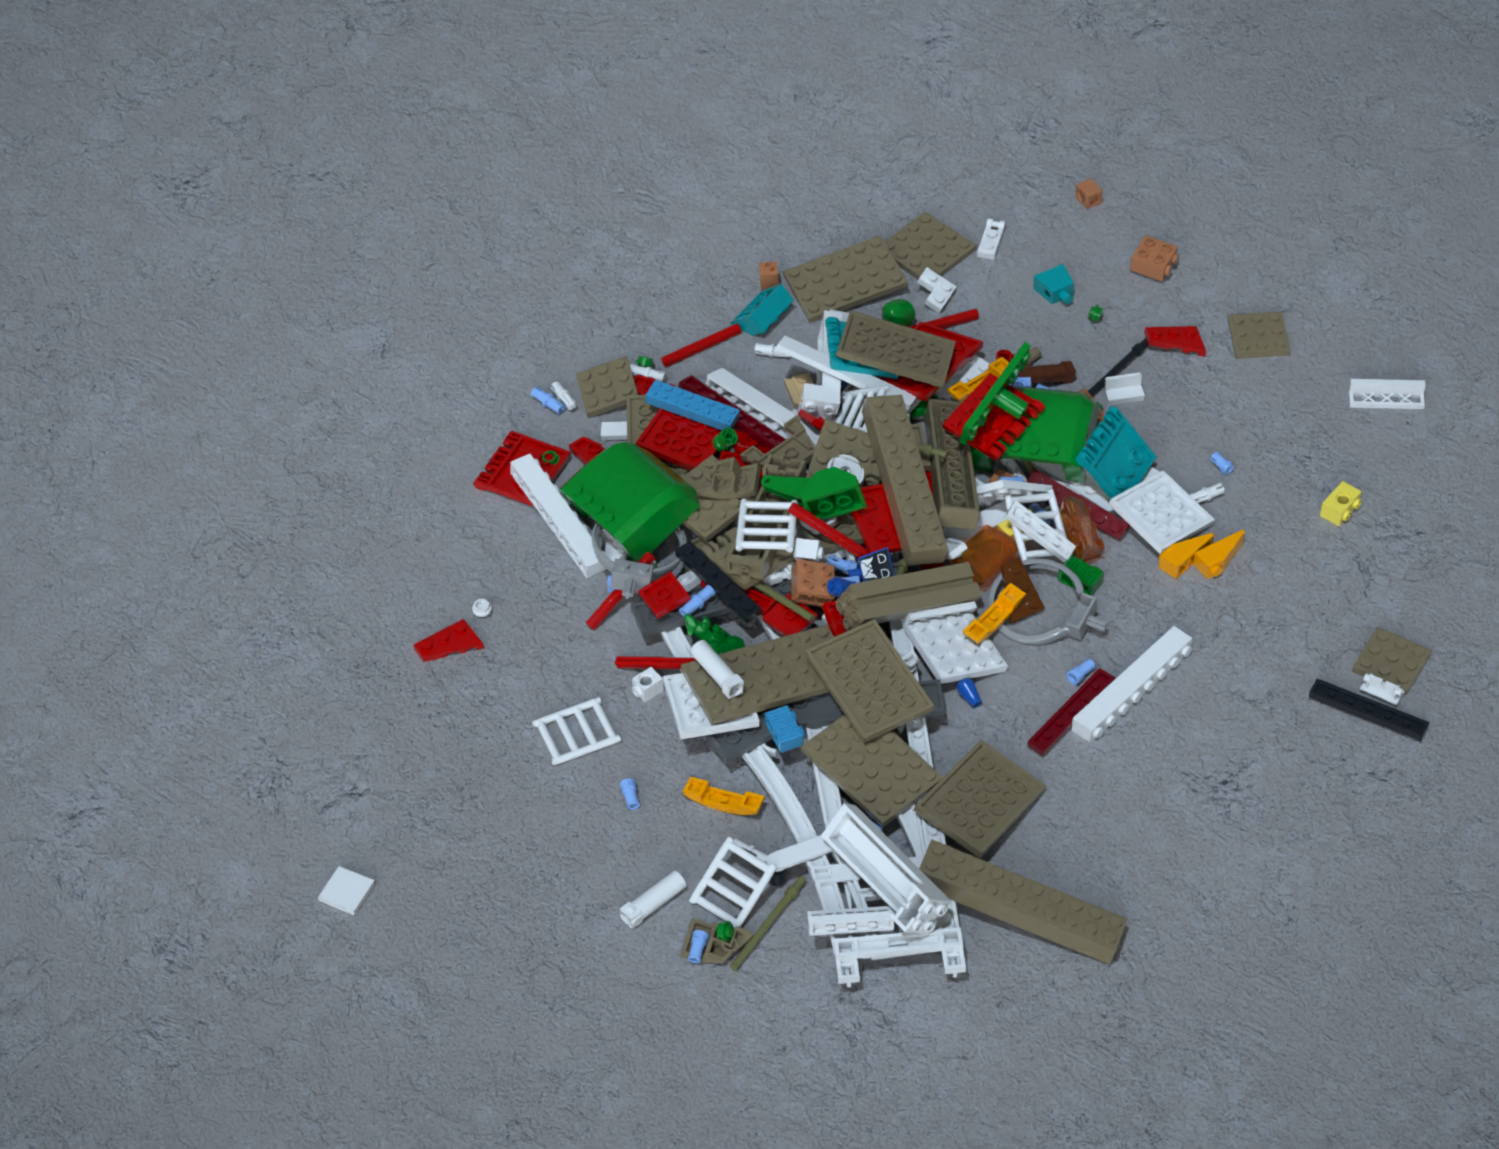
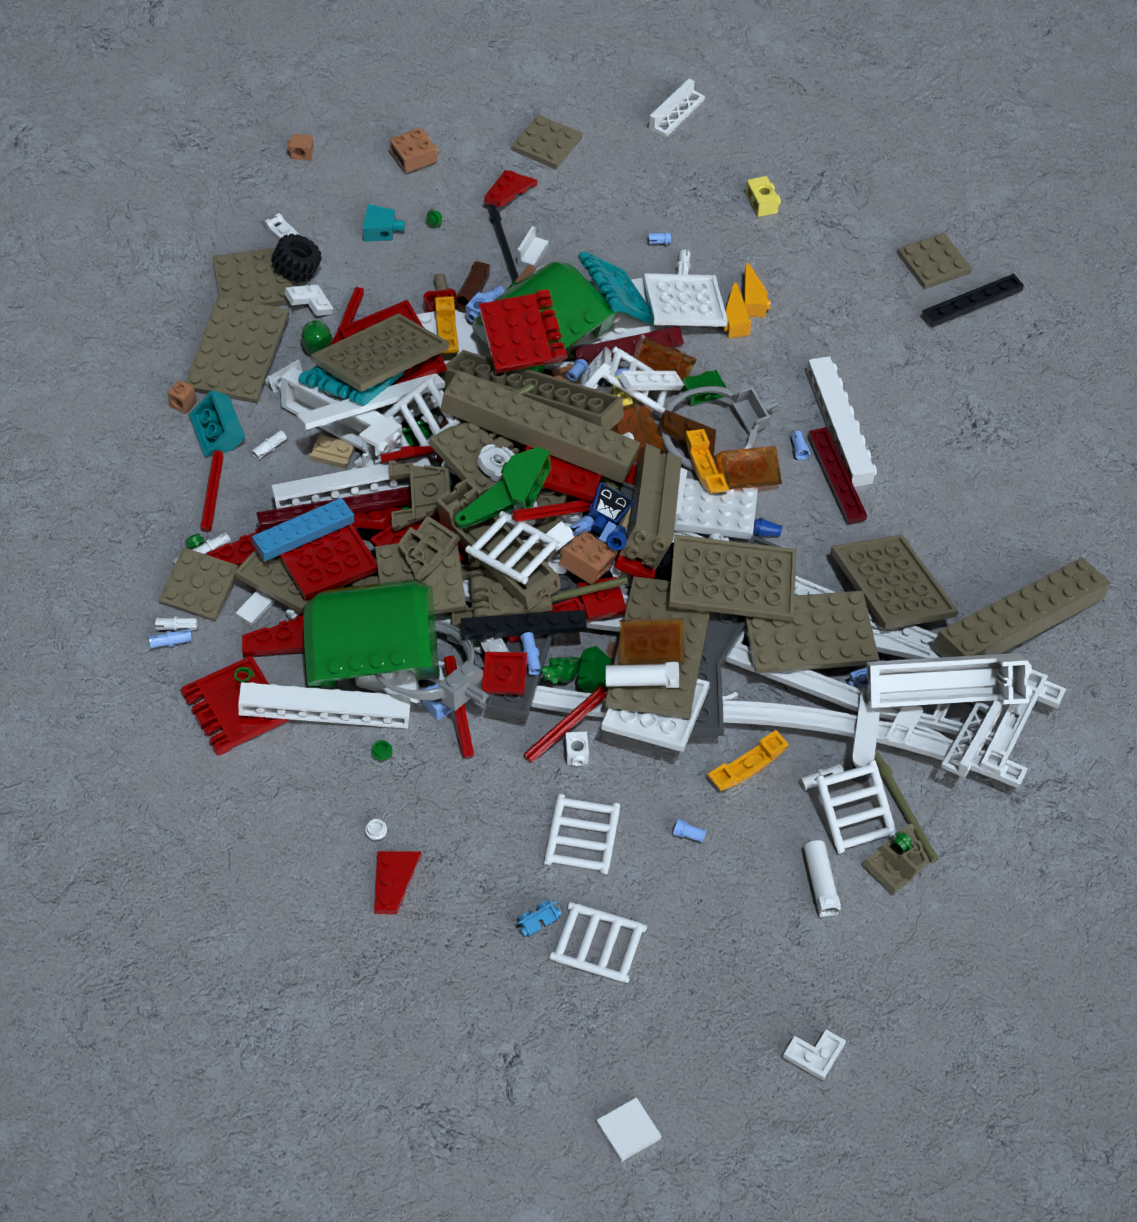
camera: 60 degrees left, 5 degrees up
(488, 744) = (545, 913): none -> dark azure hinge
(490, 977) = (816, 1059): none -> white plate
(510, 777) = (600, 969): none -> white bar
(552, 573) = (381, 750): none -> green plate
(698, 941) = (900, 872): light blue pin -> none
(725, 439) = (365, 526): green wheel -> none
(758, 658) = (651, 640): none -> clear orange slope
(784, 729) = (730, 669): dark azure brick -> none
(971, 247) = (296, 257): none -> black tyre
(999, 396) = (520, 309): green plate -> none
(1016, 646) = (749, 467): none -> clear orange slope
(1385, 691) = (959, 281): white hinge -> none

